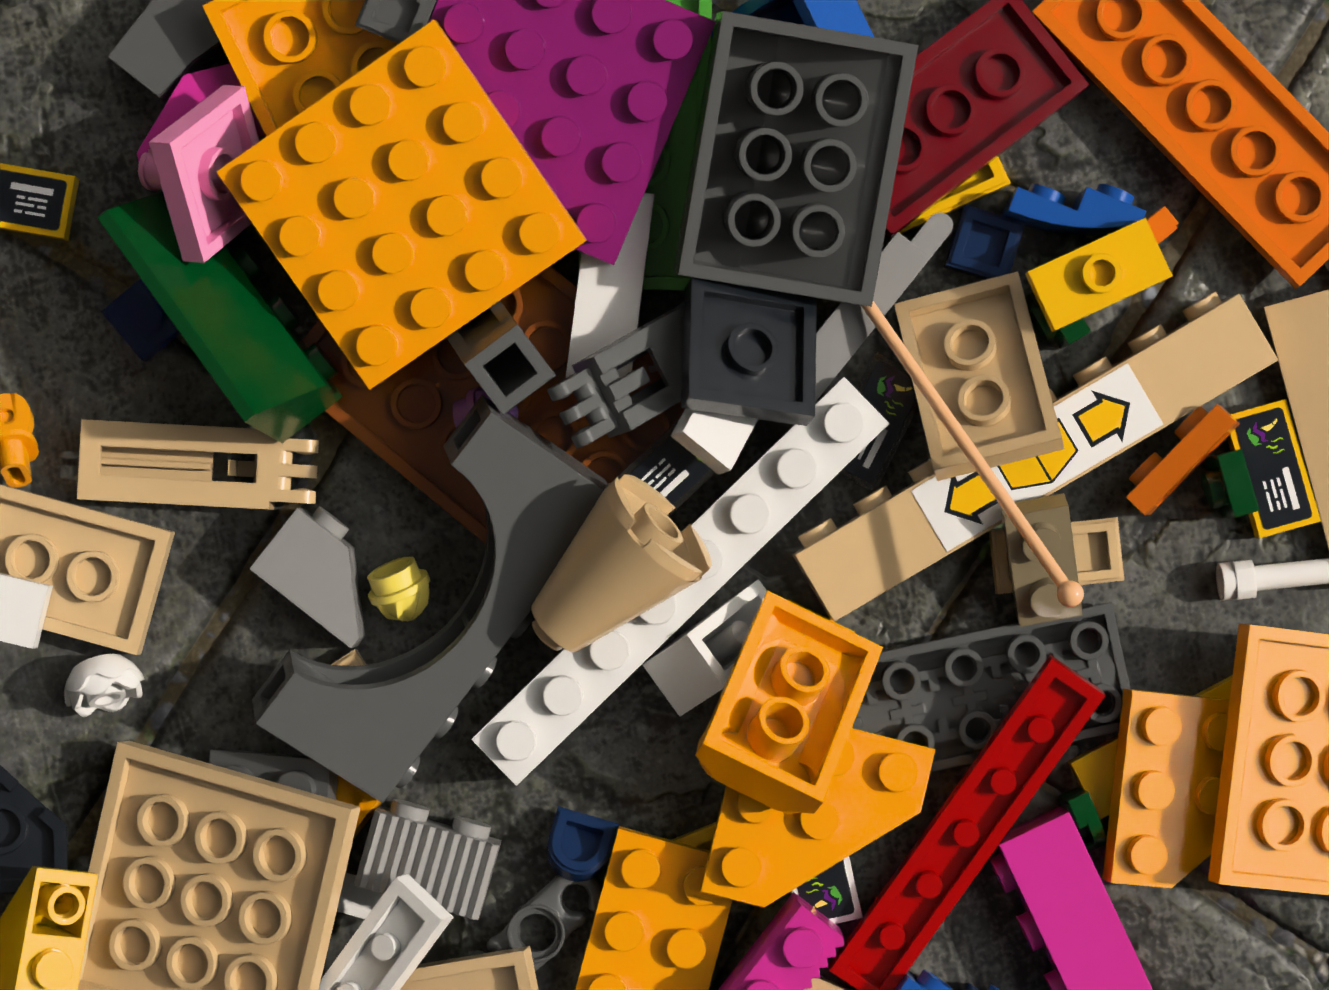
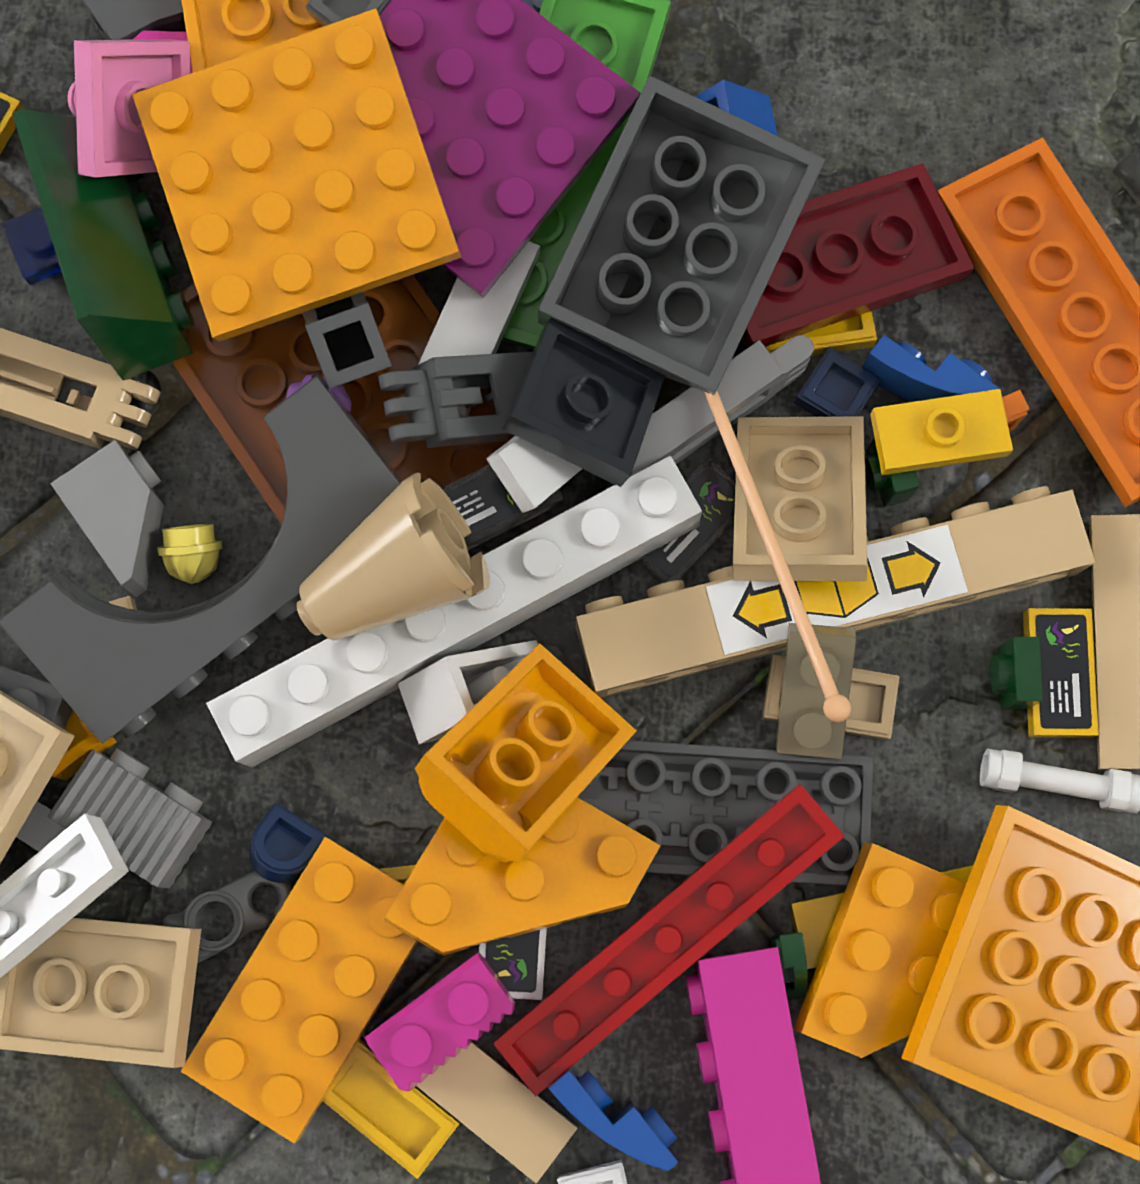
camera: 20 degrees right, 10 degrees down
(1199, 438) = (998, 619): orange plate -> none

